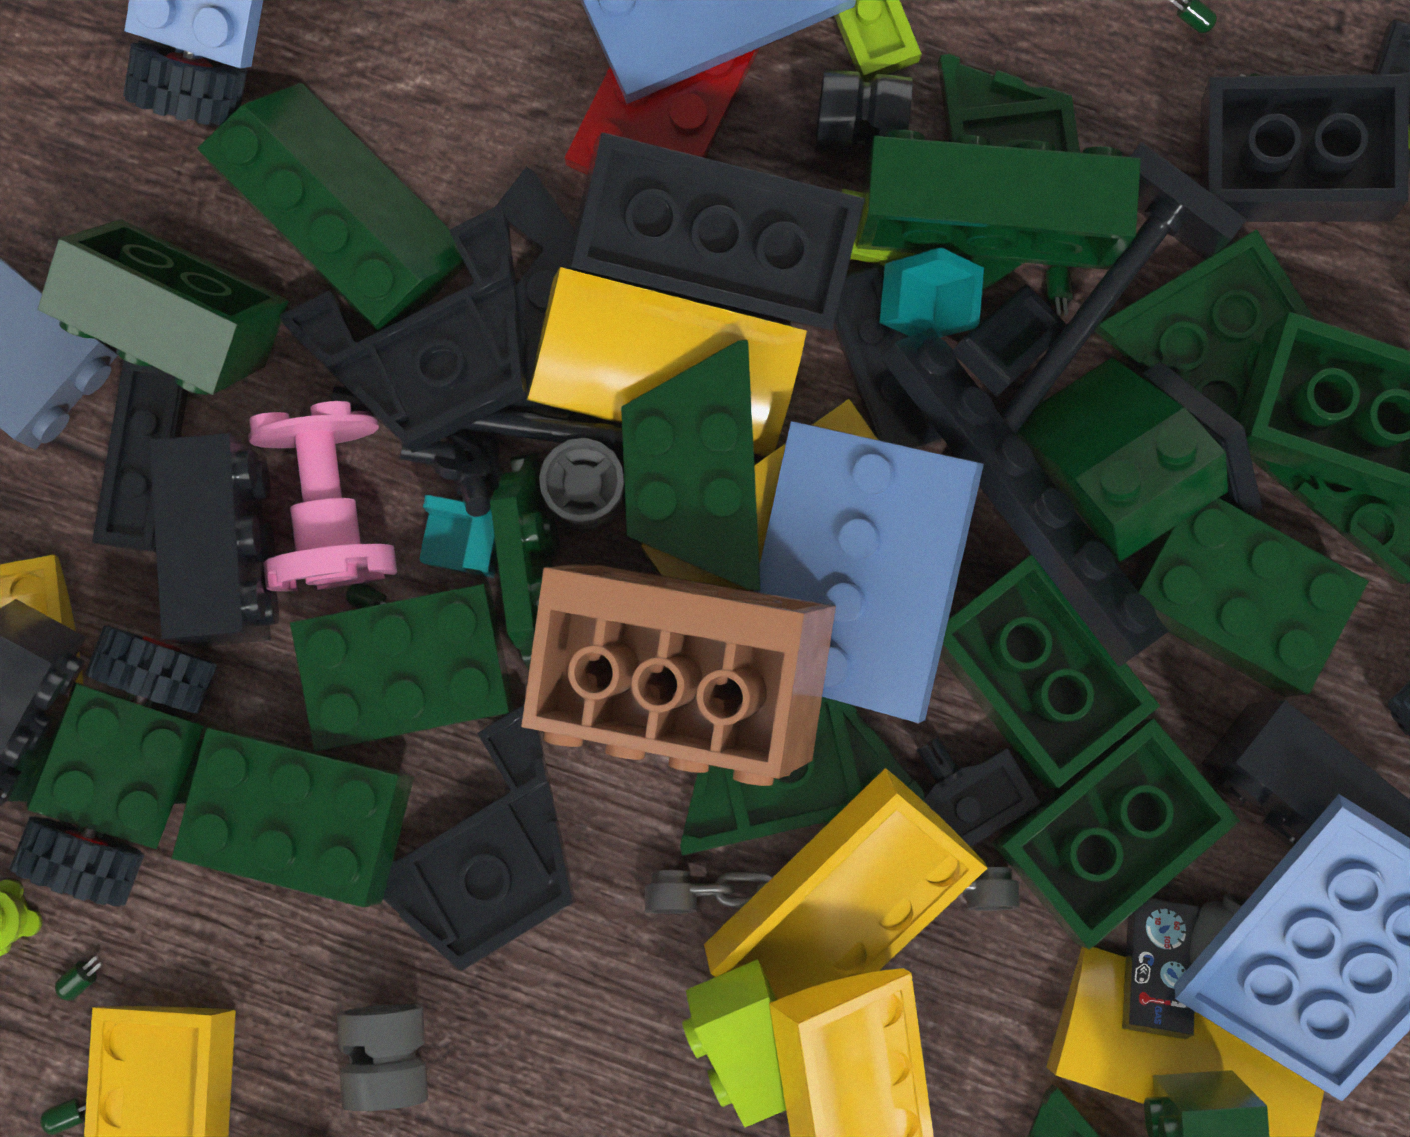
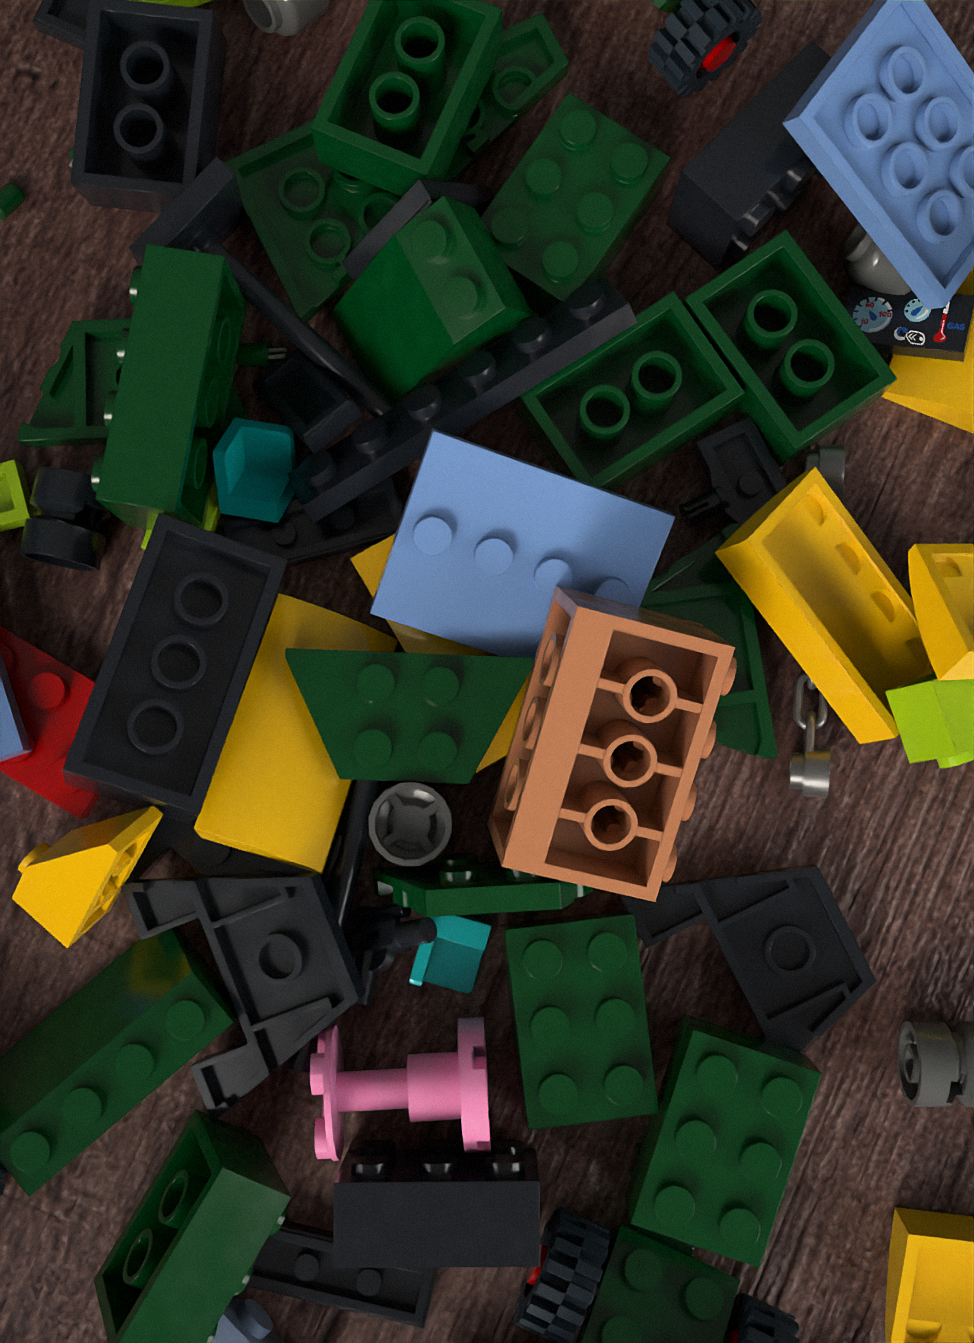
camera: 80 degrees left, 0 degrees up
(364, 596) = (500, 1050): dark green piece -> none
(509, 165) = (82, 873): none -> yellow slope

